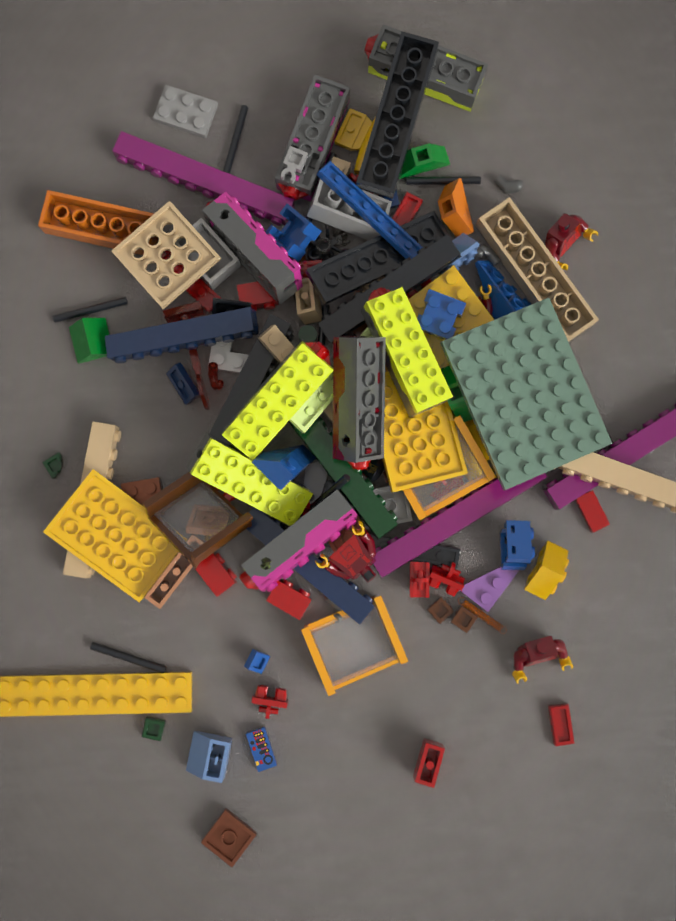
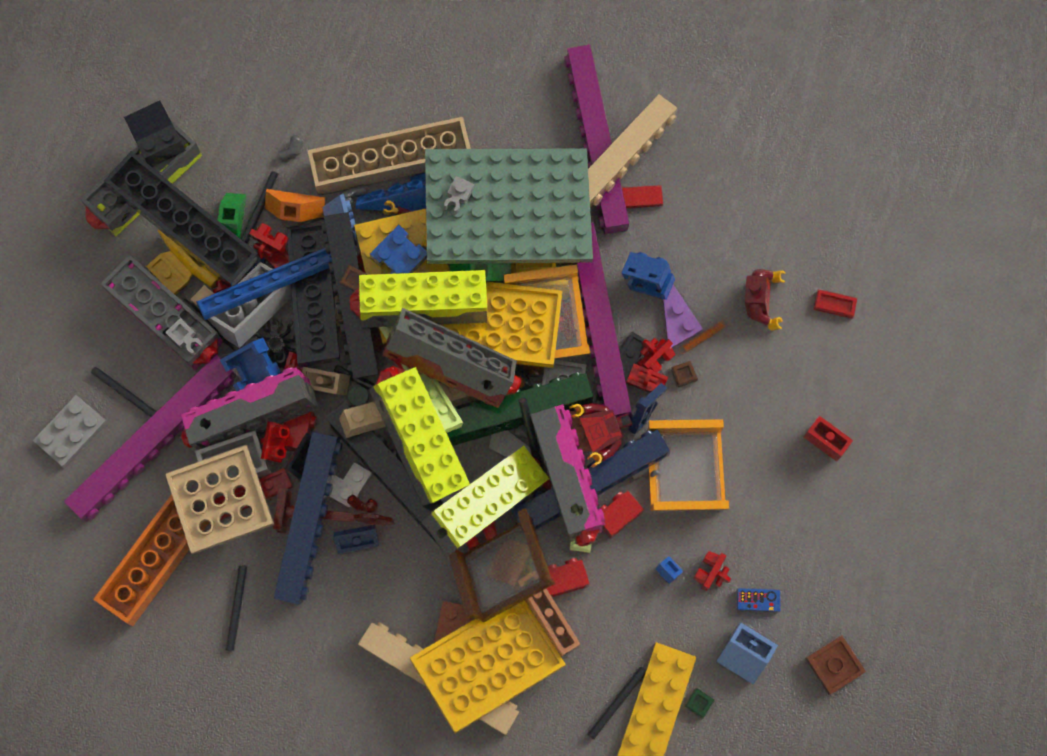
camera: 70 degrees left, 10 degrees down
(54, 465) = (385, 707): dark green tile -> none
(89, 338) = (268, 619): green slope -> none
(234, 280) = (274, 442): none -> red hips
(284, 464) = (484, 459): blue wedge -> none
(391, 587) = (645, 408): none -> dark blue wing
(404, 281) = (351, 278): none -> reddish brown tile
(416, 191) = (261, 235): none -> red hips
(463, 619) = (701, 354): reddish brown plate -> none
(466, 58) = (154, 134): none -> black slope
(518, 344) = (458, 192): none -> light grey plate
(548, 570) = (684, 256): yellow brick -> none
(564, 234) = (365, 115): dark red torso -> none

